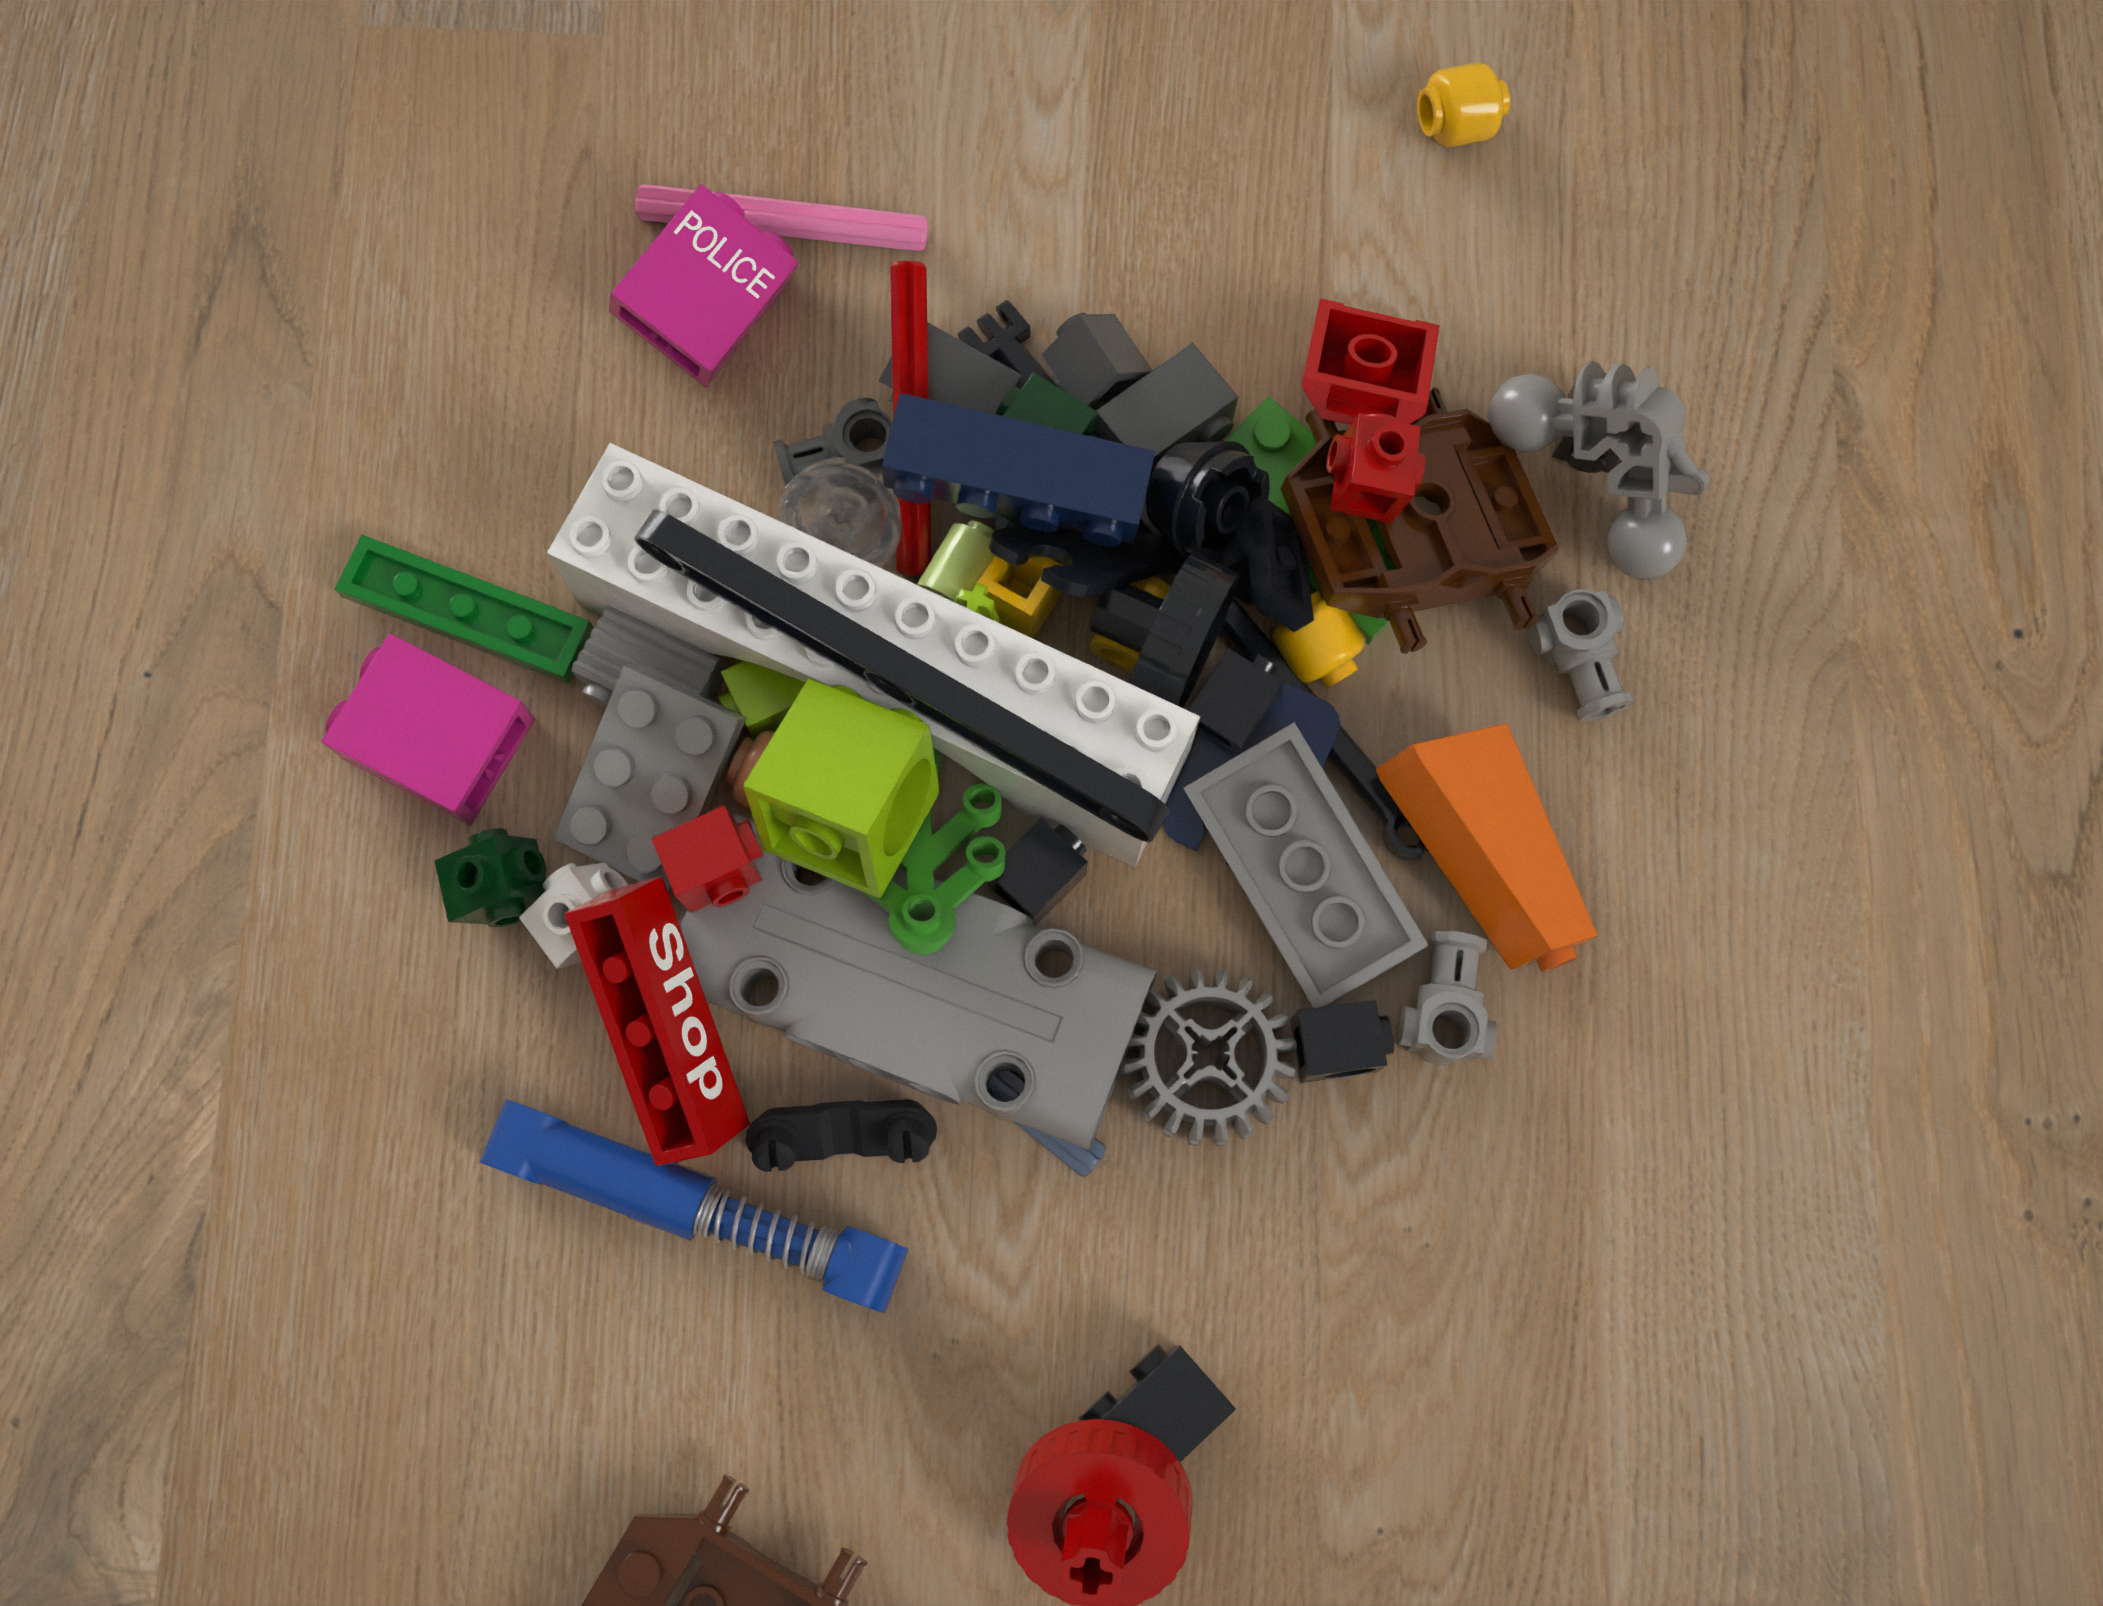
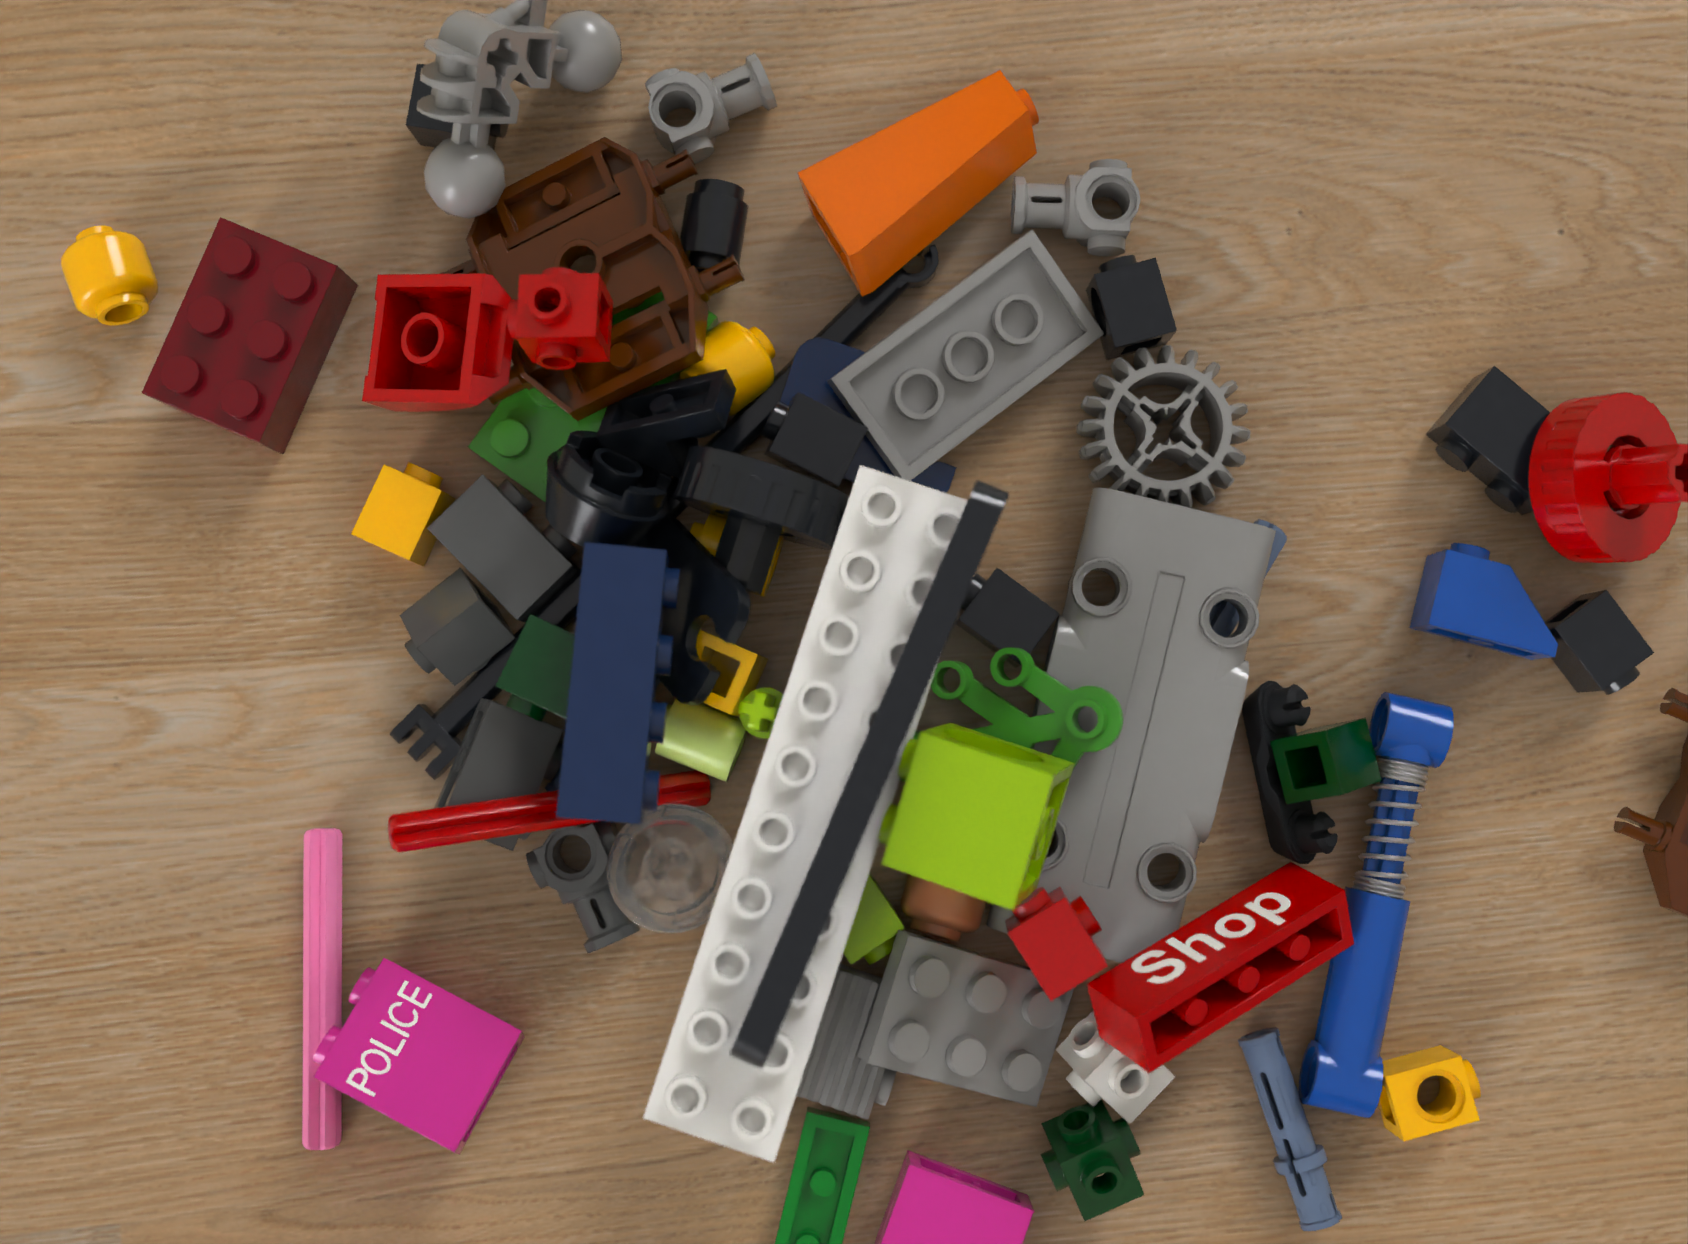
camera: 90 degrees left, 10 degrees up
(469, 1088) = (1298, 1155): none -> sand blue pin
(469, 1211) = (1451, 1107): none -> yellow brick
(845, 1170) = (1326, 761): none -> dark green brick
(925, 1484) = (1597, 644): none -> black brick
(986, 1362) = (1479, 604): none -> blue slope
(1215, 324) = (402, 510): none -> yellow brick
(1392, 217) = (251, 335): none -> dark red brick
(1462, 643) = (713, 223): none -> black brick

